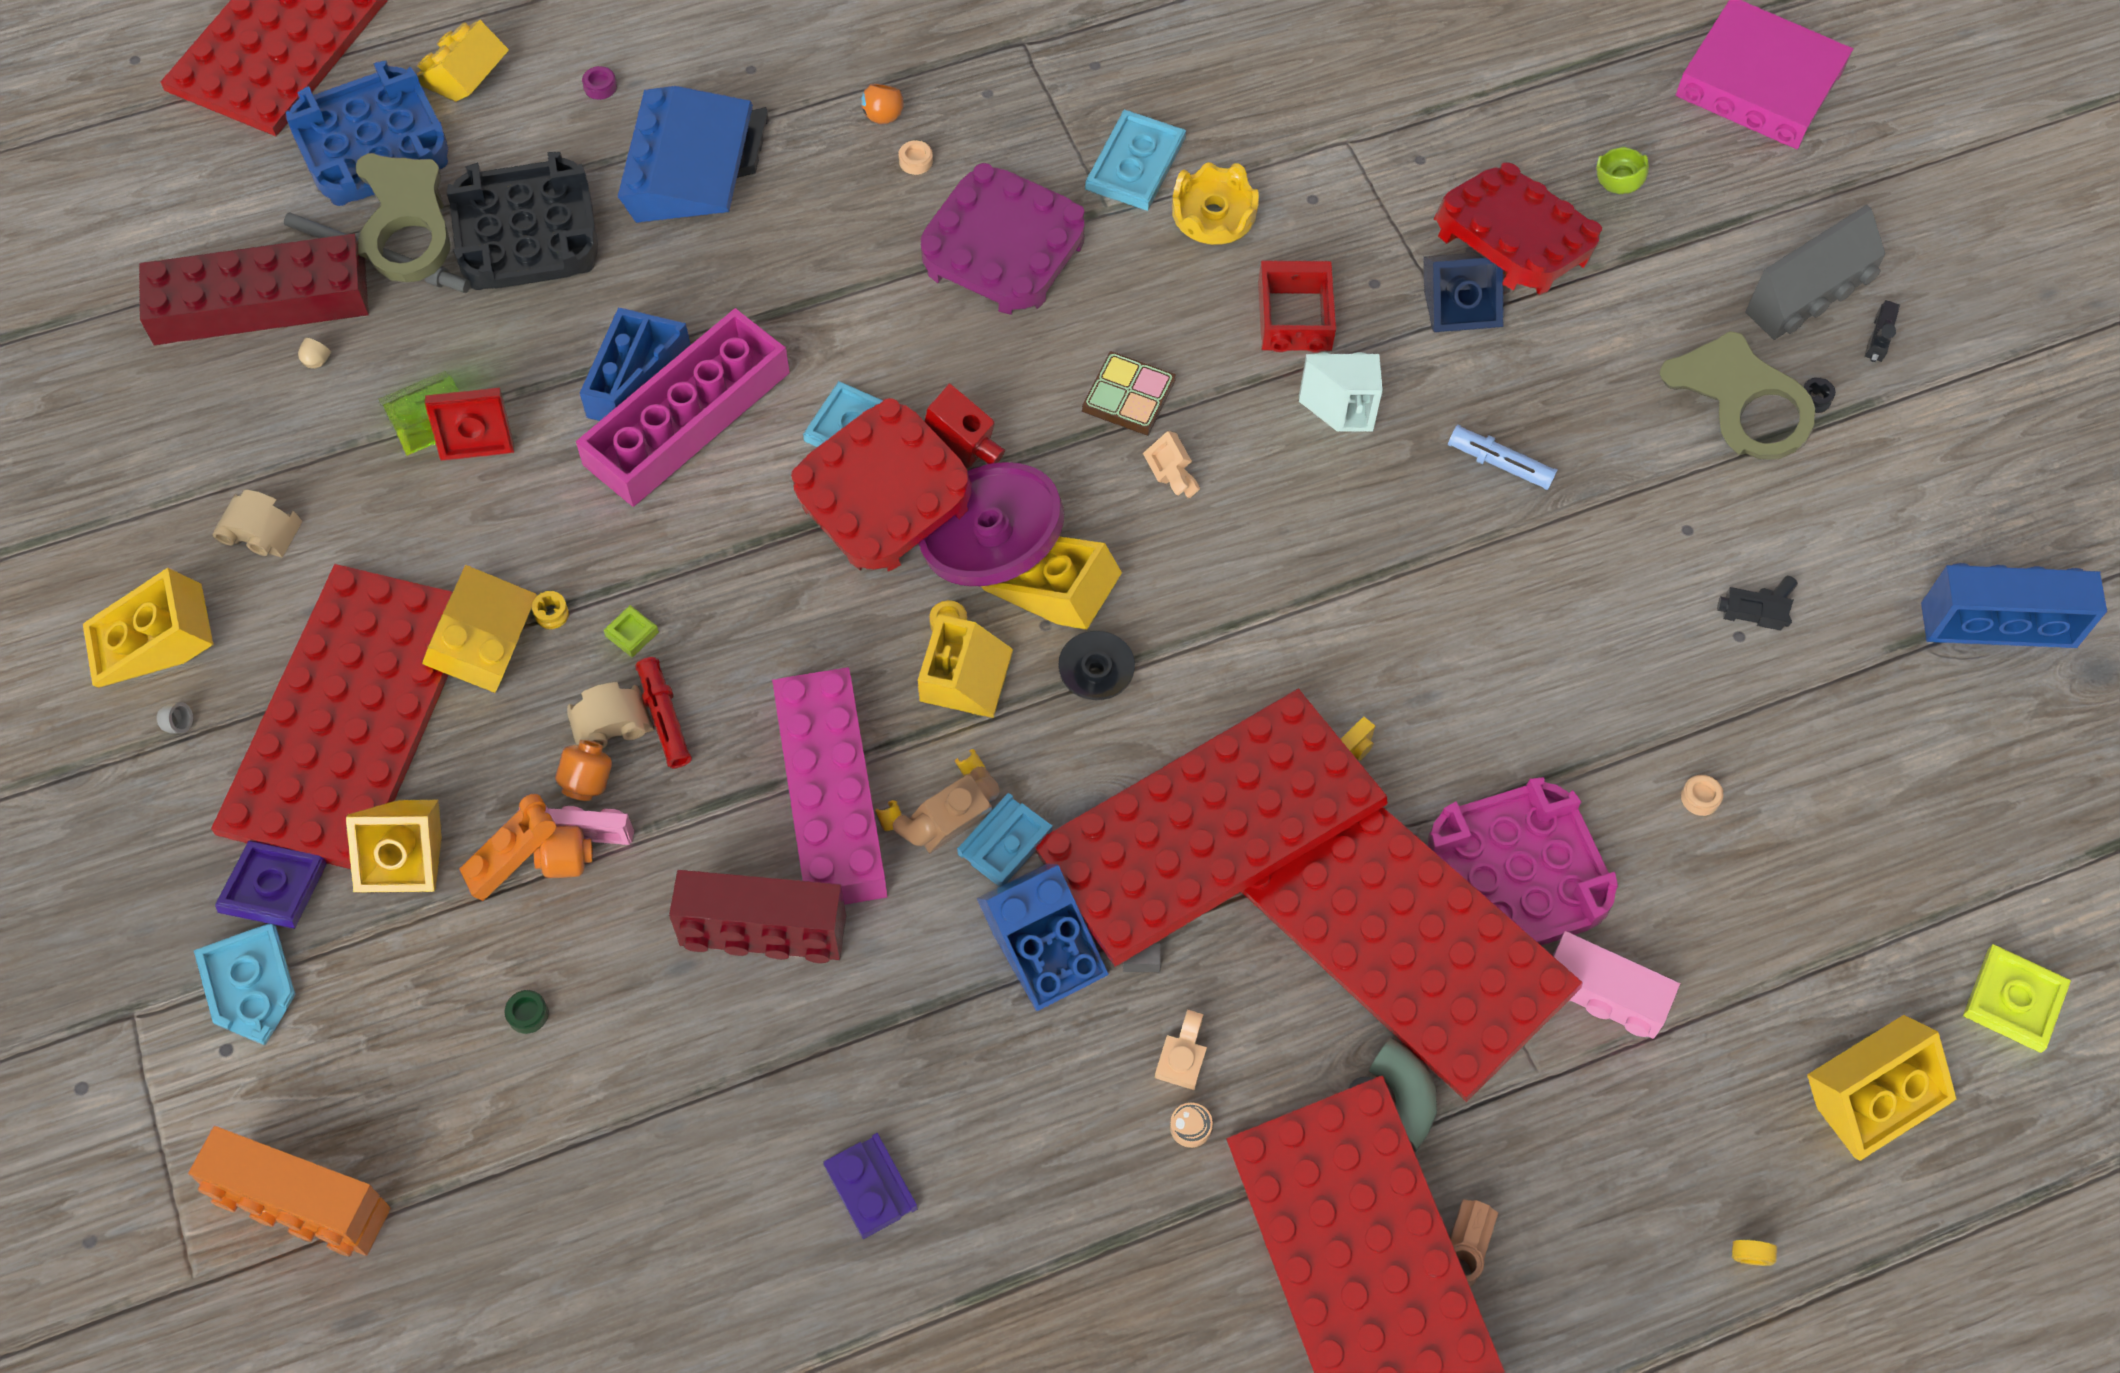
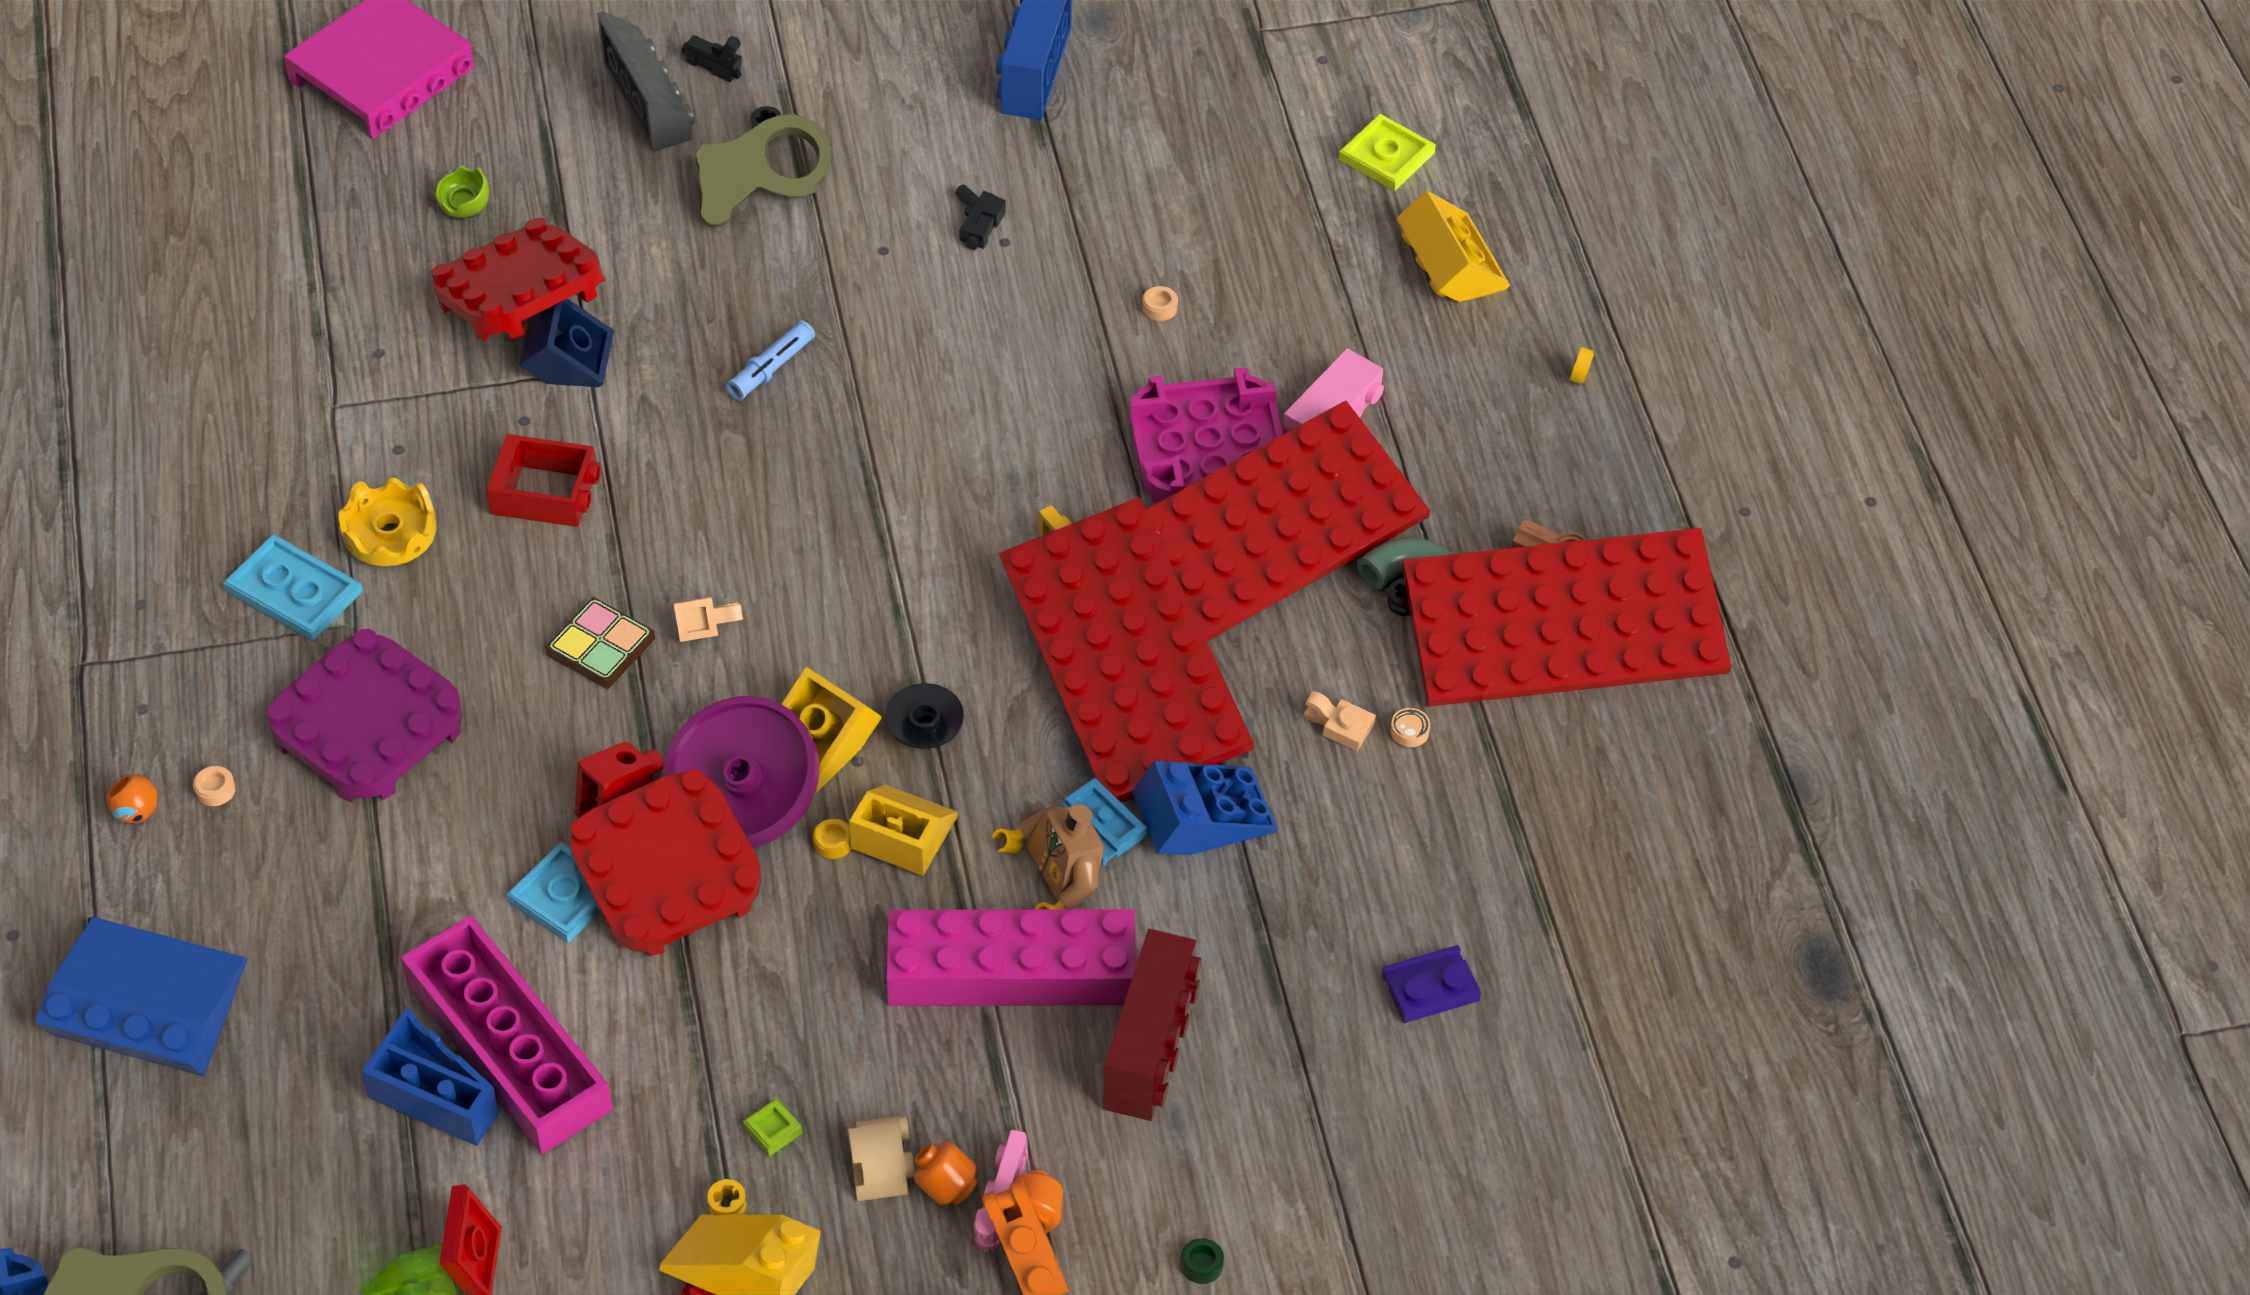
camera: 80 degrees left, 10 degrees down
(523, 223) = (174, 1180): black plate -> none
(659, 699) = (834, 1107): red pin -> none
(1342, 389) = (669, 454): light aqua slope -> none

